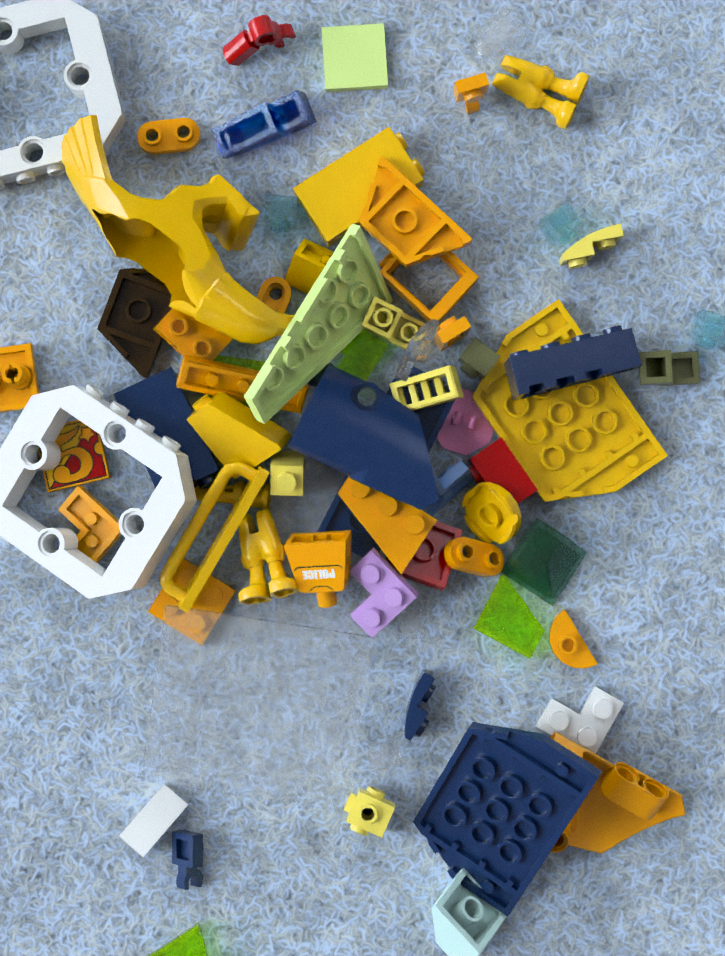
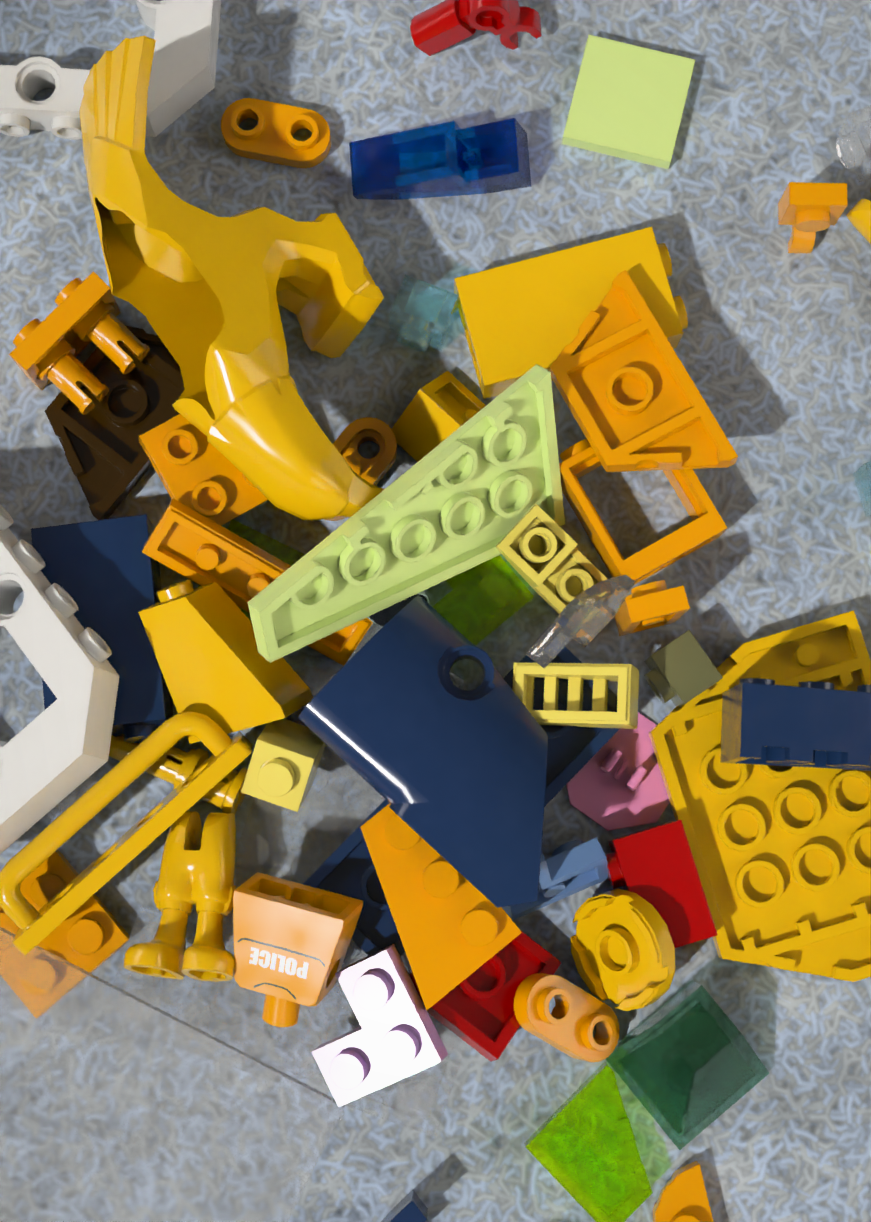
camera: 15 degrees right, 5 degrees down
(90, 296) = (49, 348): none -> light orange plate

